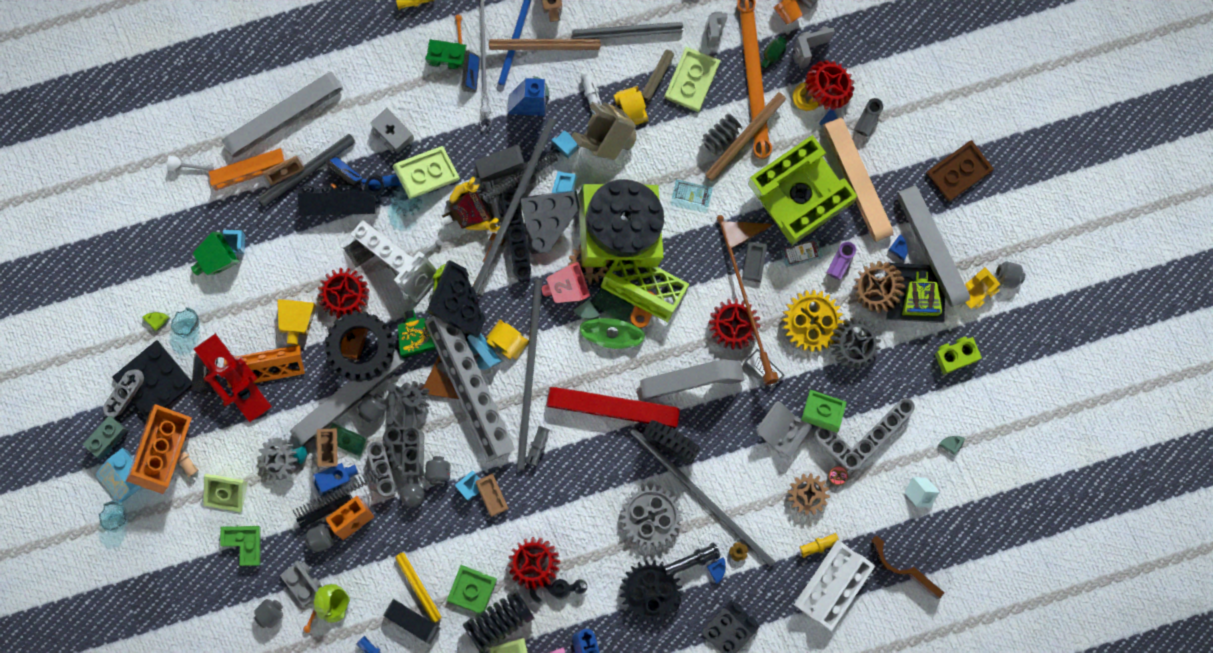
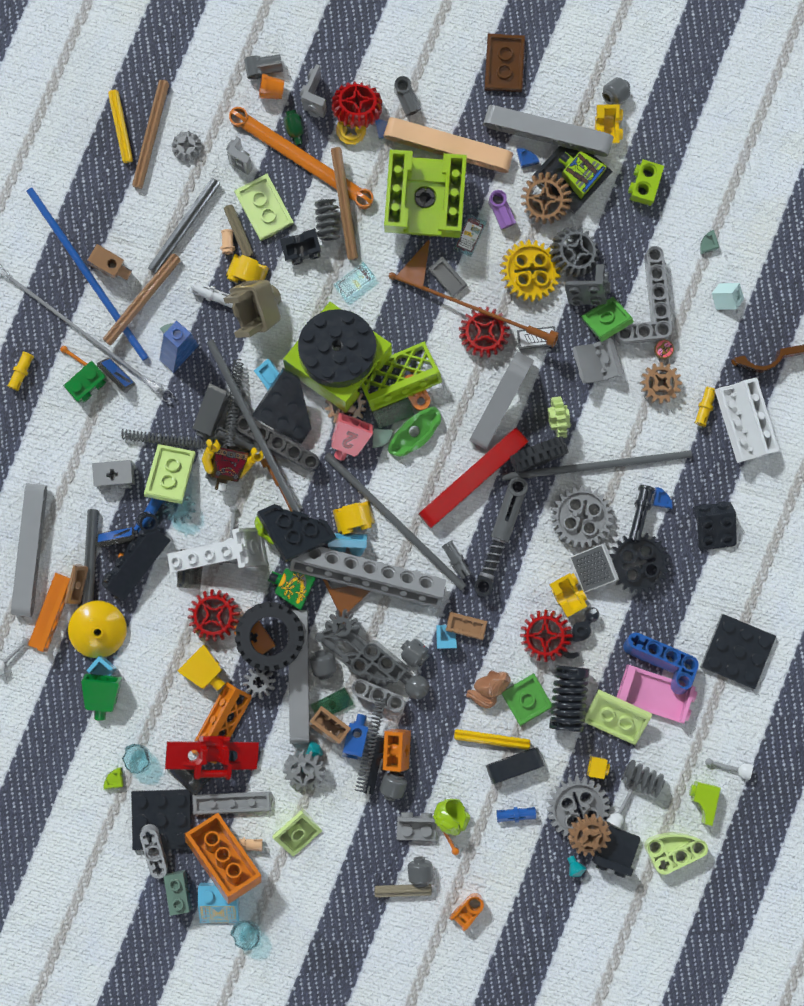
camera: 50 degrees left, 5 degrees up
(208, 424) = (232, 802): none -> light grey tile
(243, 612) = (402, 890): none -> dark tan axle
(247, 538) = (348, 842): bright green plate -> none
(273, 207) = (97, 616): none -> yellow dish
(326, 367) = (255, 687): none -> light grey gear
(449, 147) = (163, 441): none -> dark grey piece
(456, 552) = (489, 688): none -> nougat hair
(565, 144) = (235, 347): medium azure panel -> none
(580, 555) = (568, 595): none -> yellow cylinder
(585, 464) = (501, 534): none -> piece
(618, 558) = (594, 568): none -> tile
(639, 75) = (227, 242): none -> light nougat pin
(684, 131) = (301, 247): none -> black cylinder
(714, 434) = (559, 417): none -> yellowish green gear
(733, 552) = (666, 472): pearl gold plate -> none
(835, 383) = (589, 292): none -> dark grey bracket

